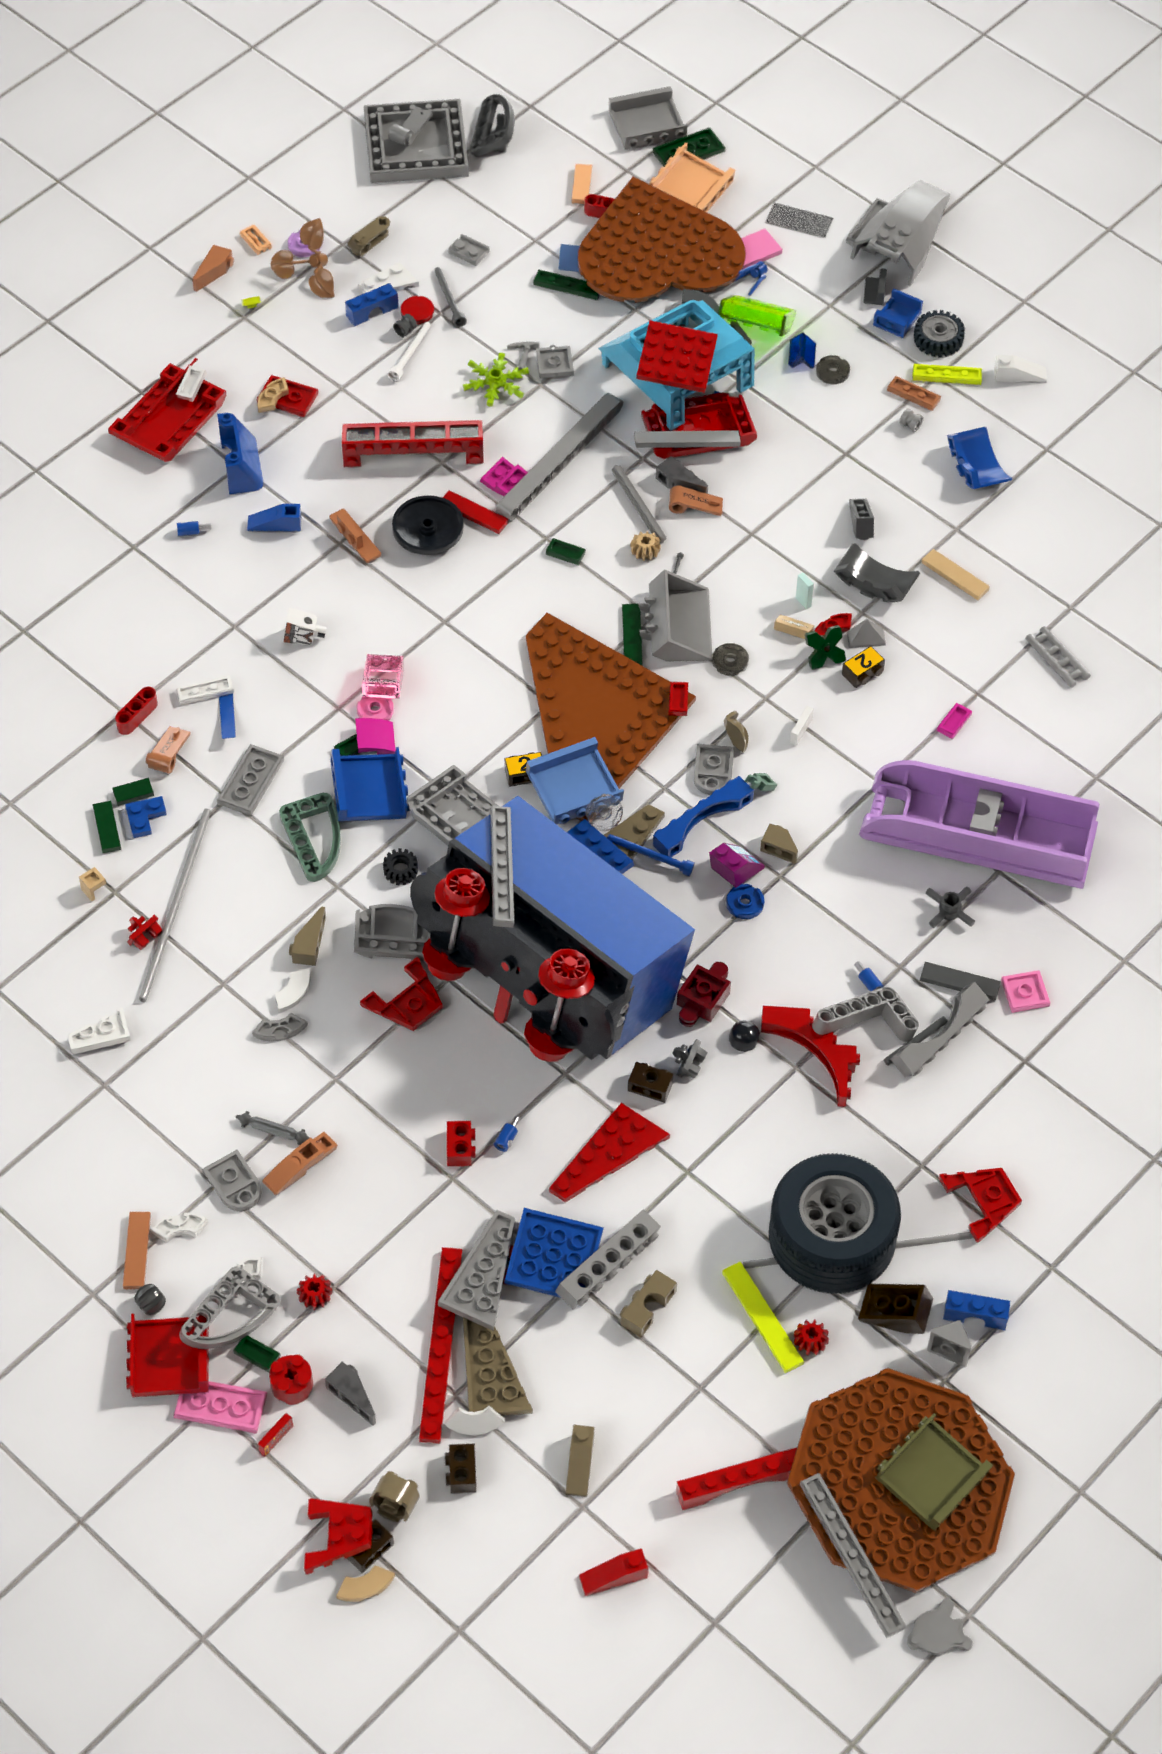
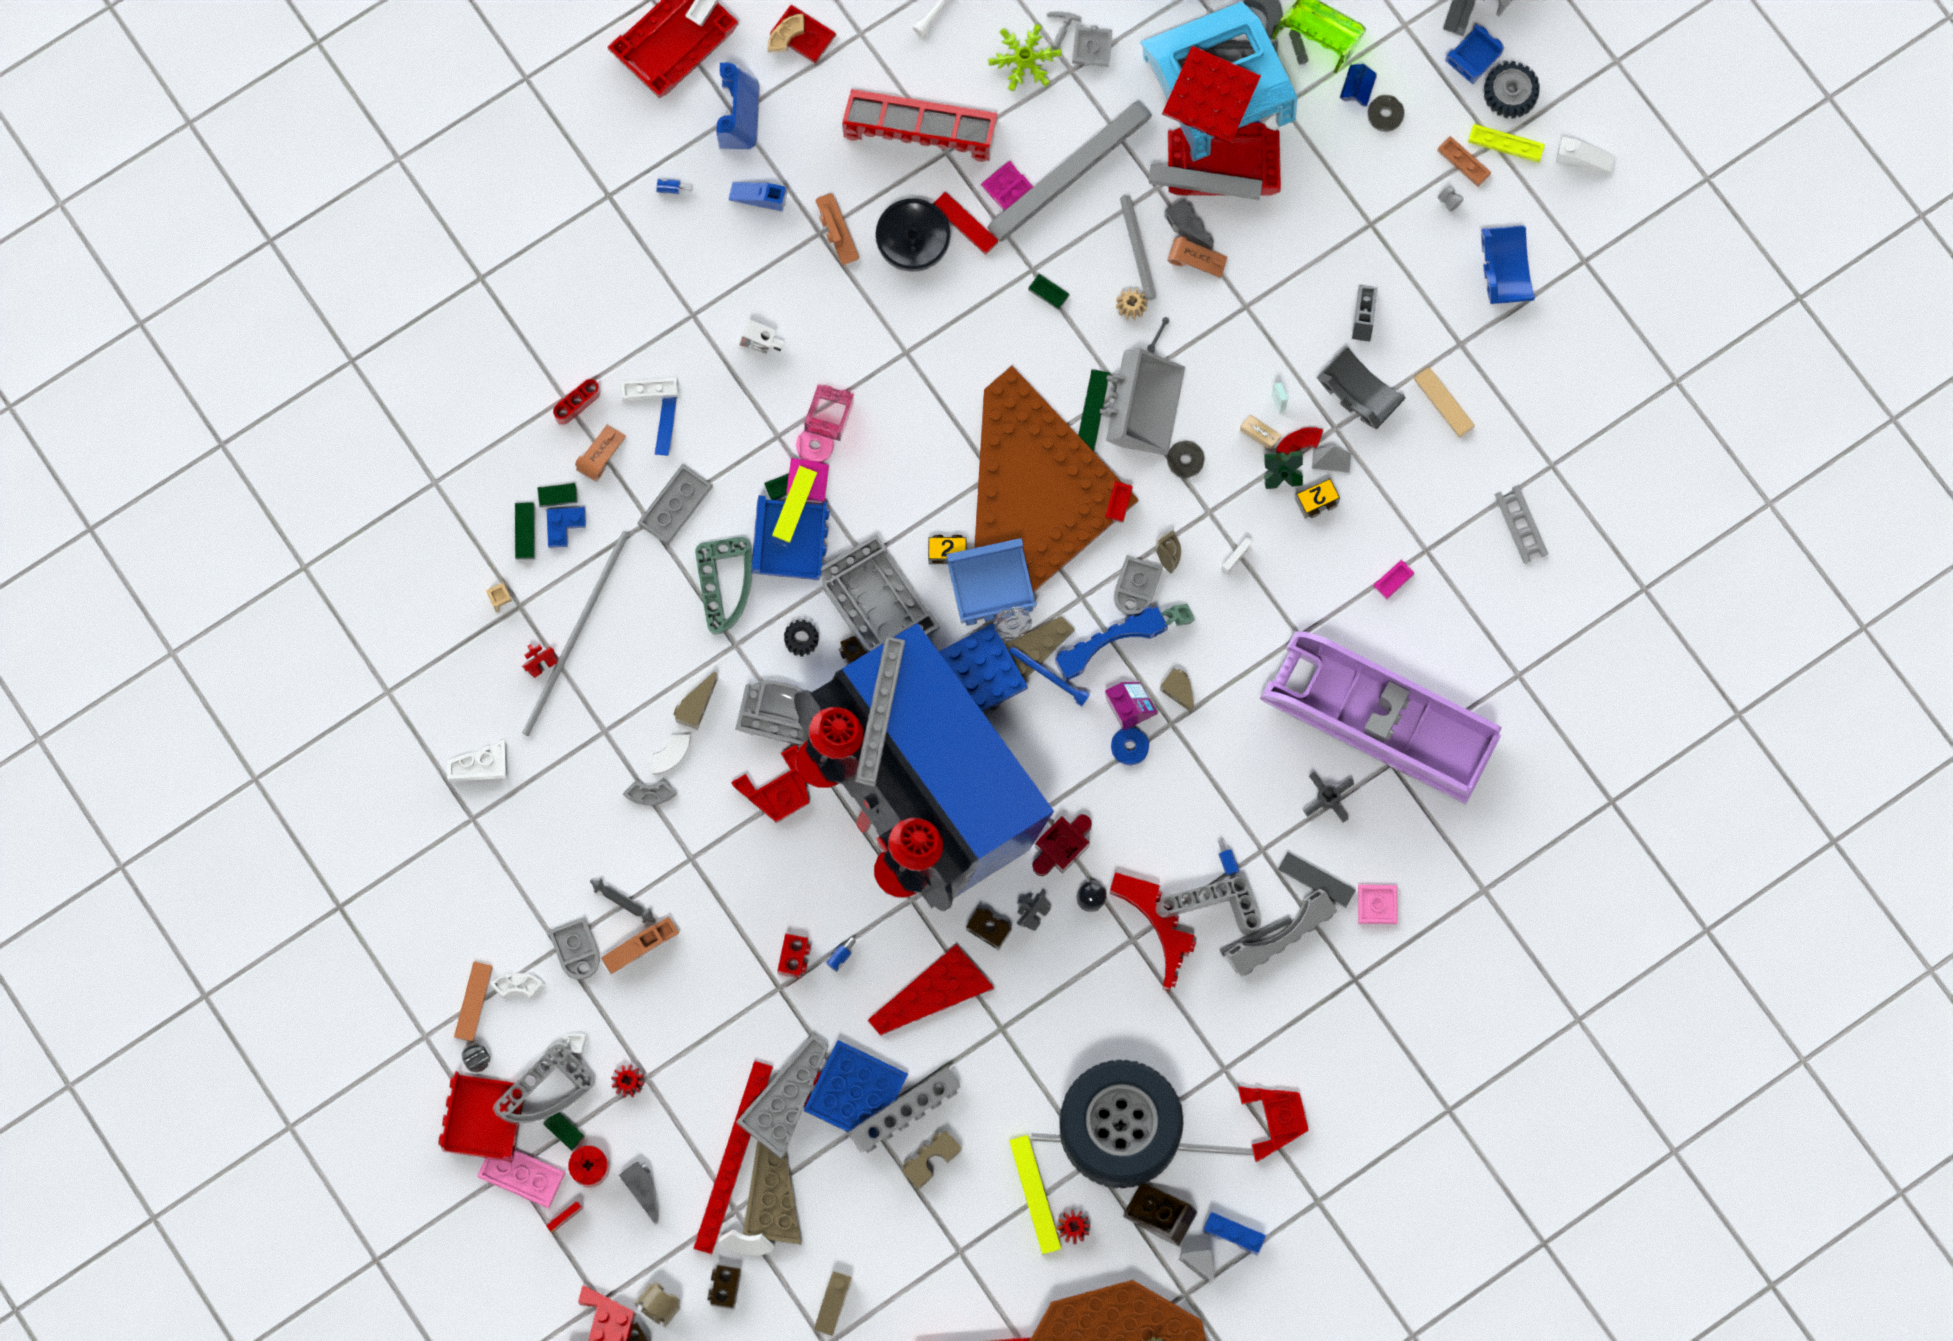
camera: 15 degrees right, 20 degrees up
(367, 754) = (794, 504): none -> neon yellow tile

